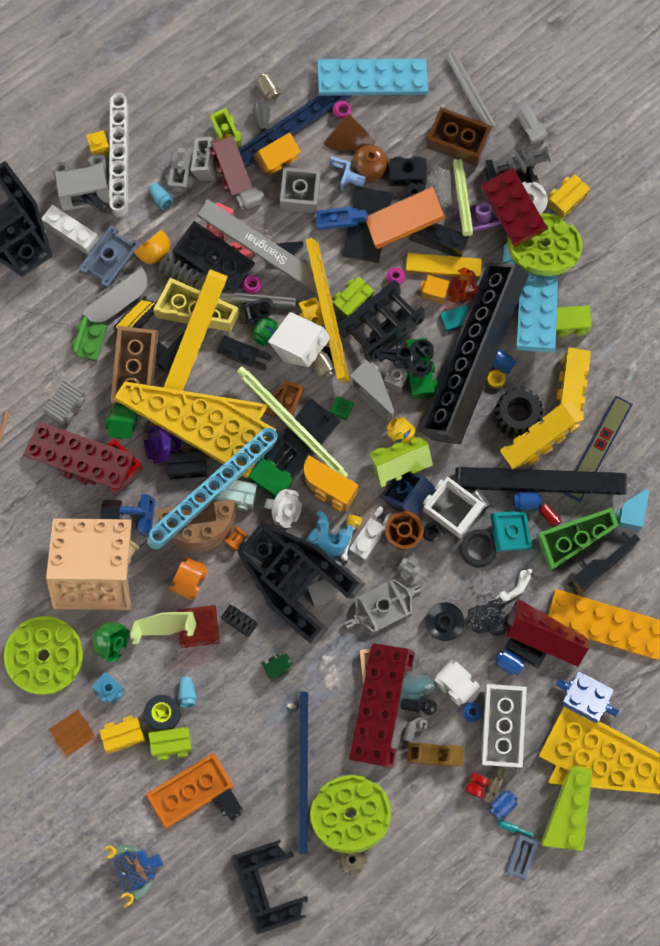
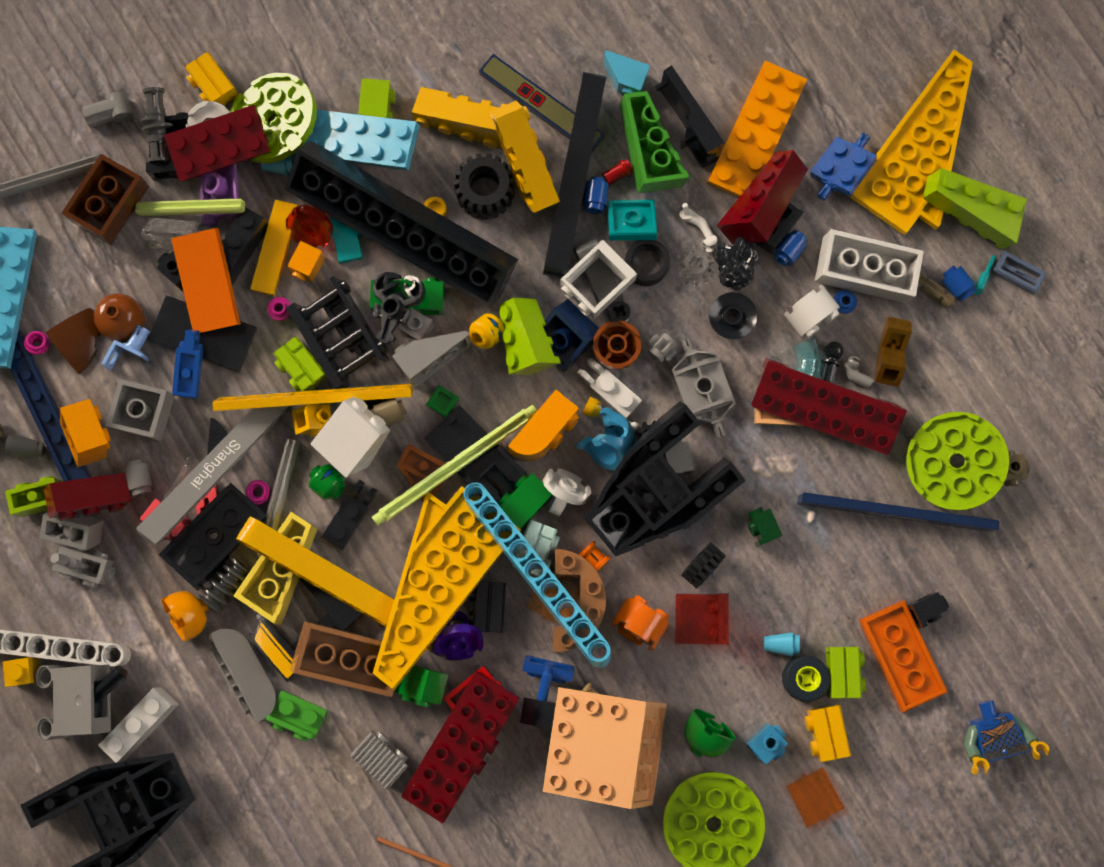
camera: 85 degrees left, 5 degrees up
(108, 268) = (202, 679): sand blue piece -> none
(160, 196) = (112, 596): medium azure cone -> none
(163, 624) = (694, 662): yellowish green piece -> none
(246, 868) = (1064, 584): black wedge -> none
(252, 311) = (296, 492): black piece -> none
(398, 177) = (146, 283): black brick -> none
(476, 790) = (939, 309): red wheel -> none
(503, 362) = (418, 191): blue brick -> none

